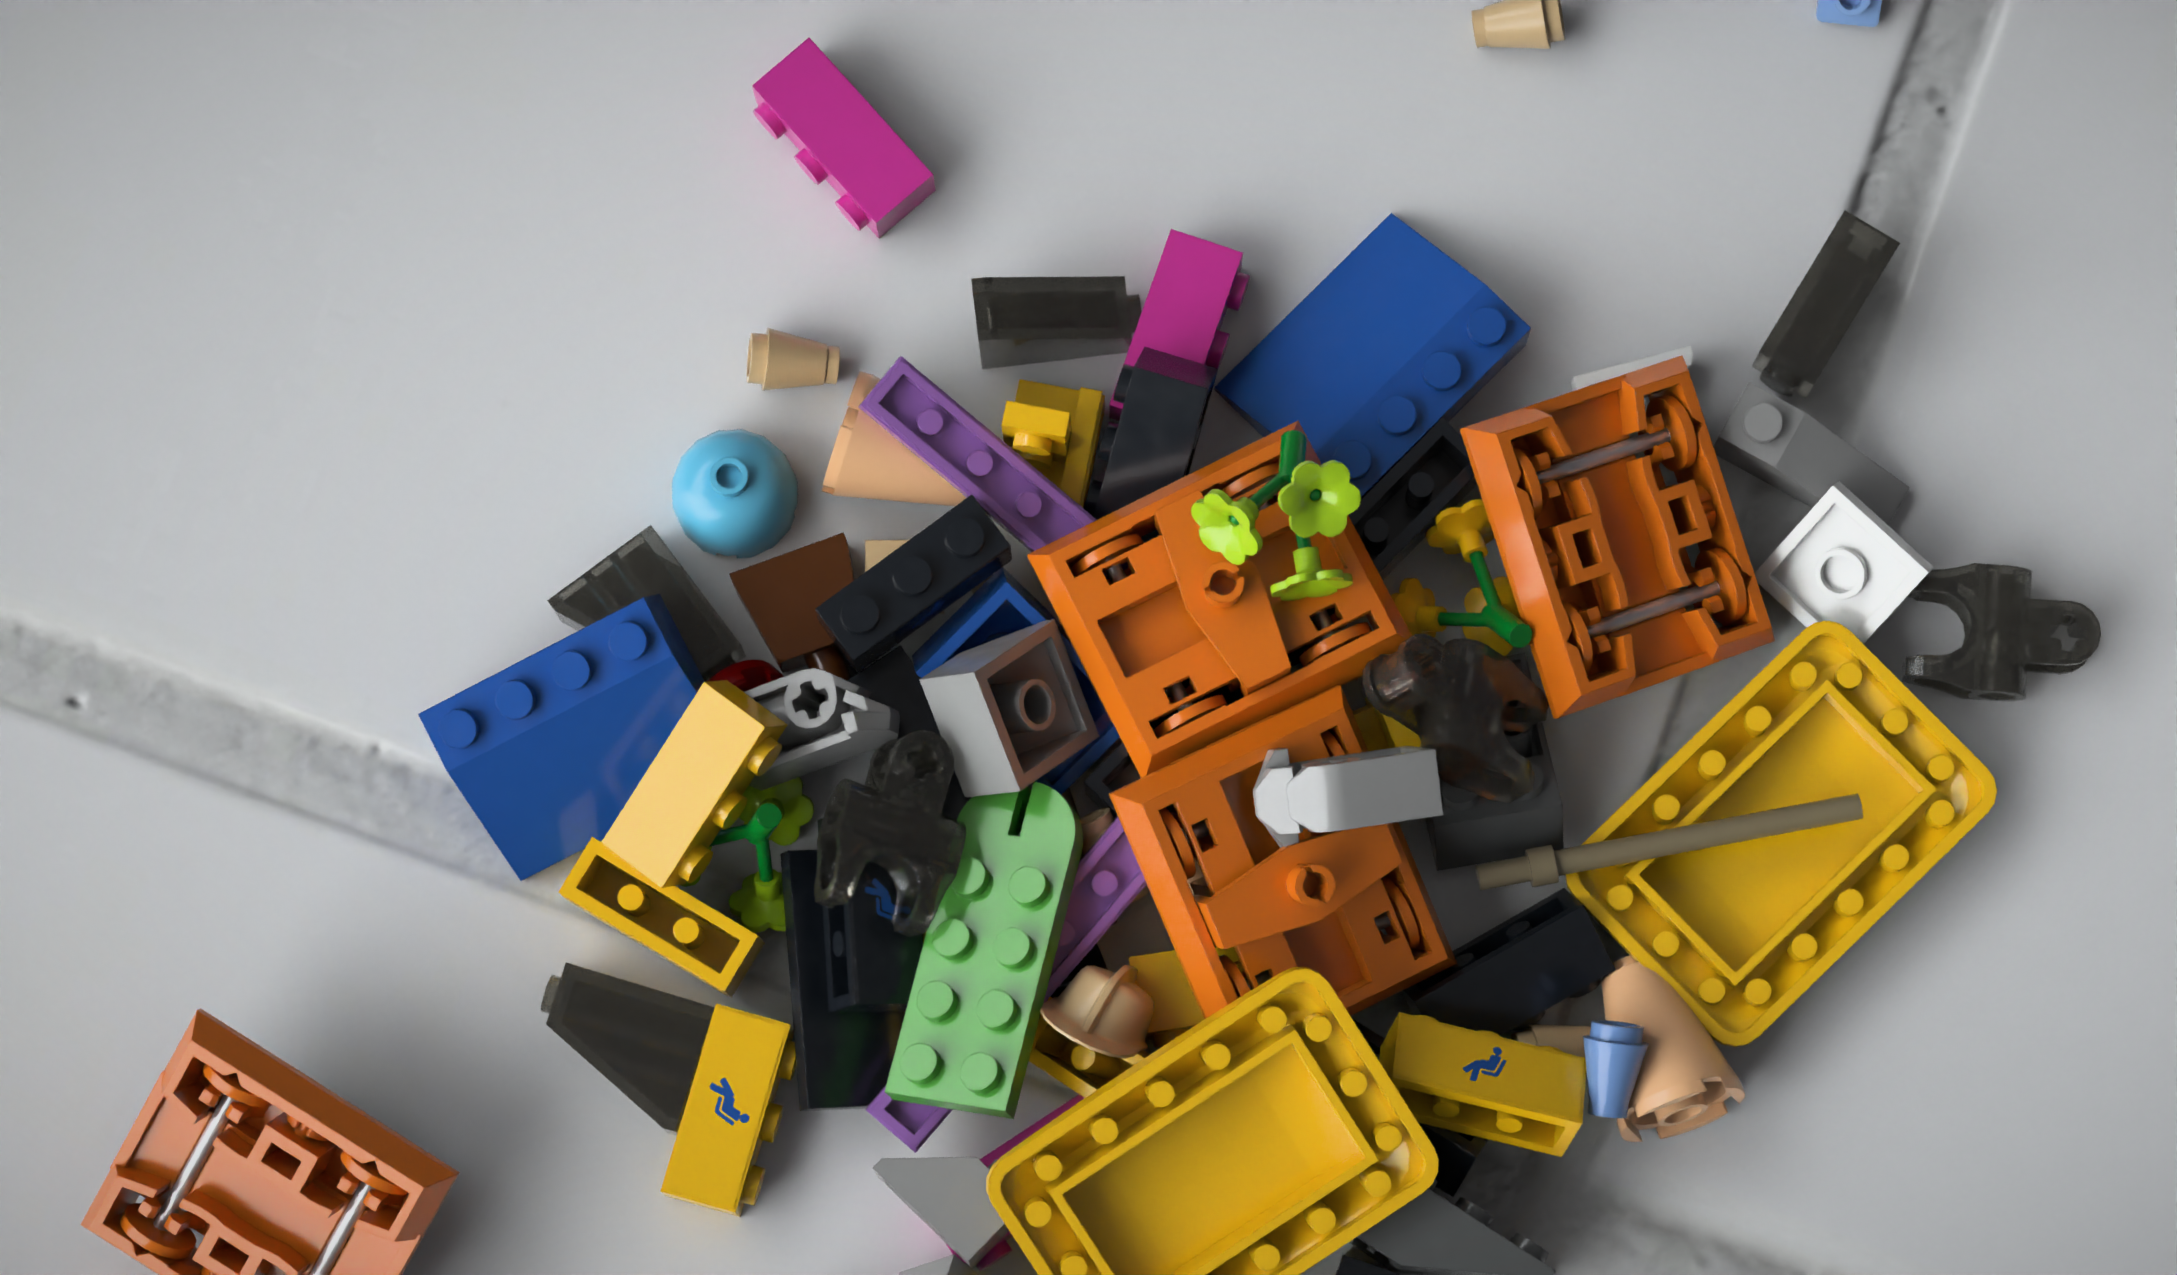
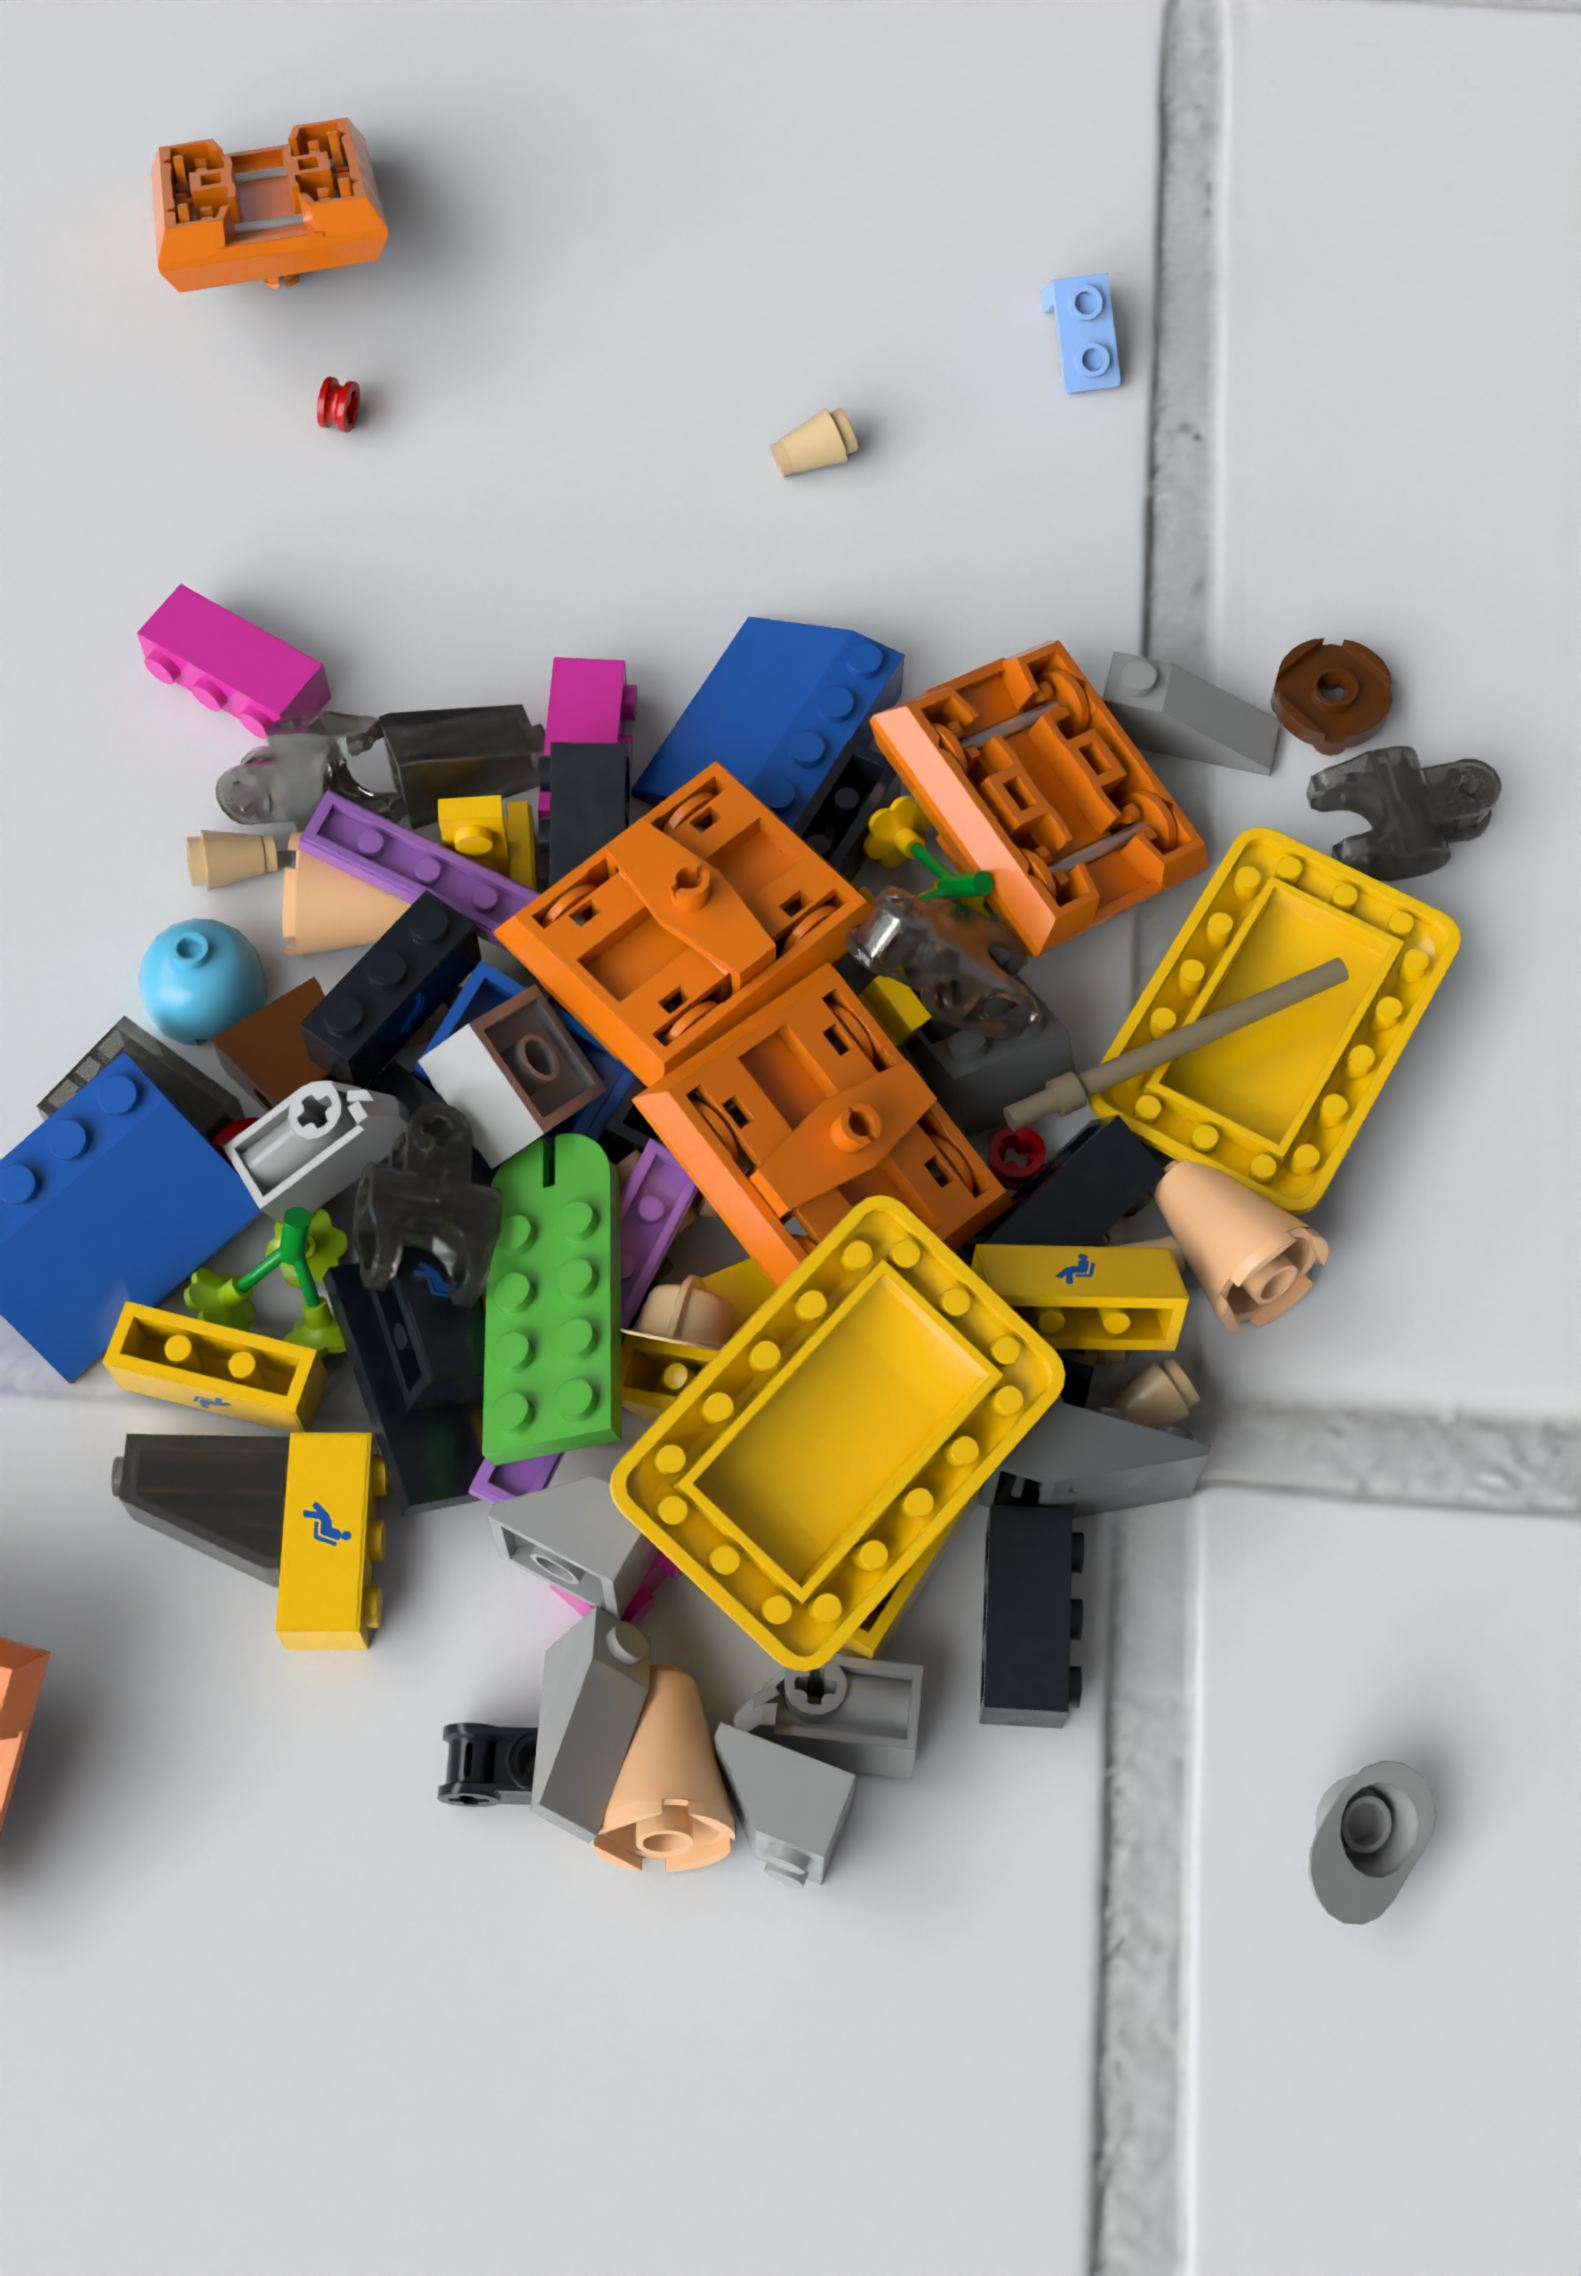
camera: 20 degrees left, 15 degrees down
(696, 785) = (217, 1216): yellow brick -> none
(888, 308) = (298, 768): none -> clear smoke piece
(1313, 498) = (752, 772): lime plant -> none
(1345, 791) = (865, 1035): light grey piece -> none
(1469, 916) = (1023, 1142): none -> red bush
(1529, 1189) = (1157, 1396): none -> tan cone
(1612, 1065) = (1198, 1243): medium blue cone -> none
(1824, 306) = (1159, 573): clear smoke slope -> none
(1843, 566) = (1250, 781): white plate -> none
(1983, 439) = (1328, 723): none -> reddish brown plate

